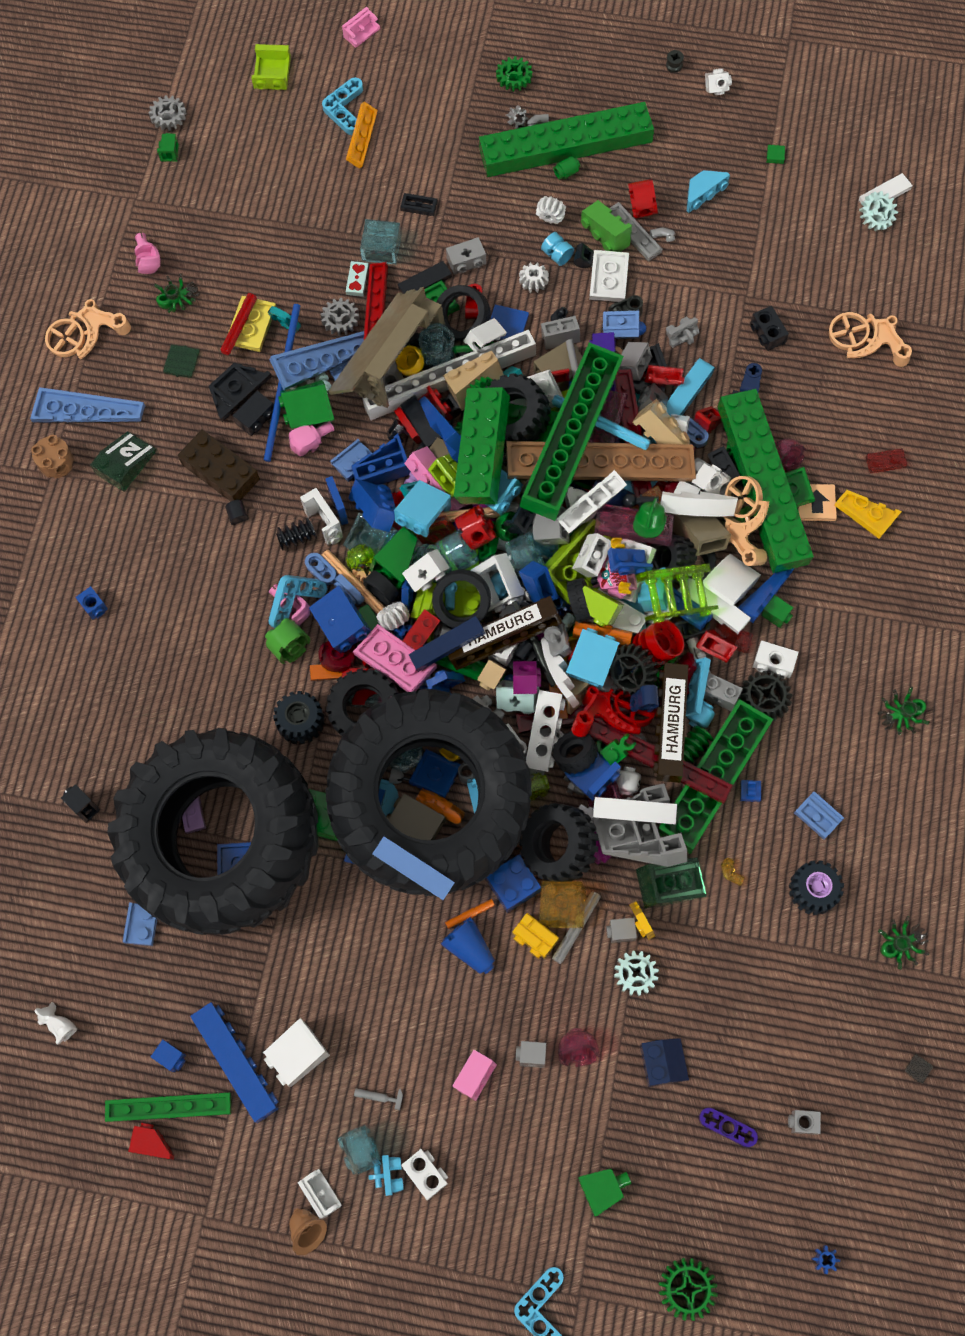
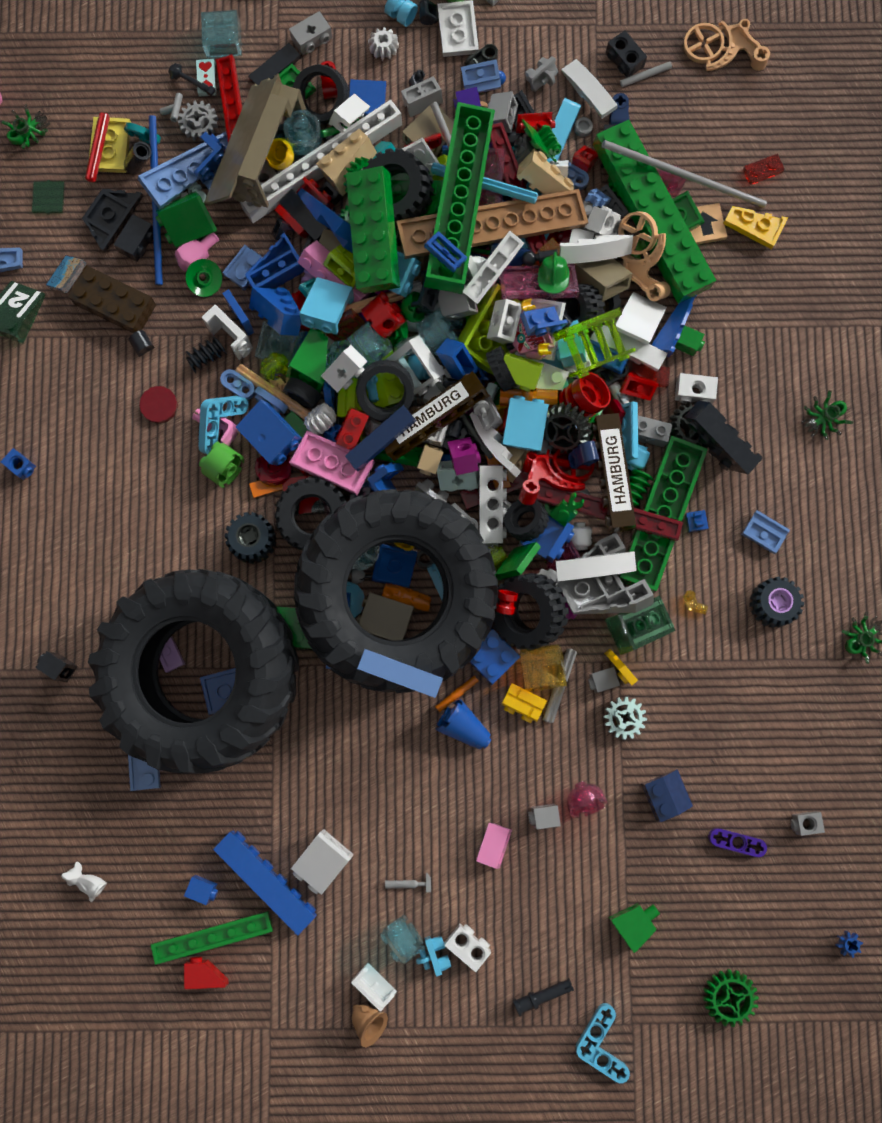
camera: 15 degrees left, 10 degrees up
(181, 434) = (66, 274): none -> tile
(239, 573) = (158, 404): none -> dark red tile
(274, 340) = (137, 157): none -> black pin
(317, 468) = (212, 280): none -> green dish
(319, 302) = (174, 108): none -> light grey piece
(330, 268) = (175, 72): none -> black piece
(339, 360) = (211, 163): none -> blue bracket
(481, 1245) = (533, 999): none -> black pin
(536, 826) = (506, 602): none -> red wheel
(555, 490) = (442, 250): none -> blue tile
(557, 790) = (517, 561): none -> green tile
(668, 393) = (543, 140): none -> green hinge
(711, 457) = (597, 198): none -> medium blue plate
(713, 388) = (583, 127): none -> light grey tile
(726, 353) = (589, 88): none -> white slope
(785, 350) = (645, 74): none -> light grey bar
(788, 711) = (721, 438): none -> black wedge
(802, 450) = (683, 173): none -> light grey piece

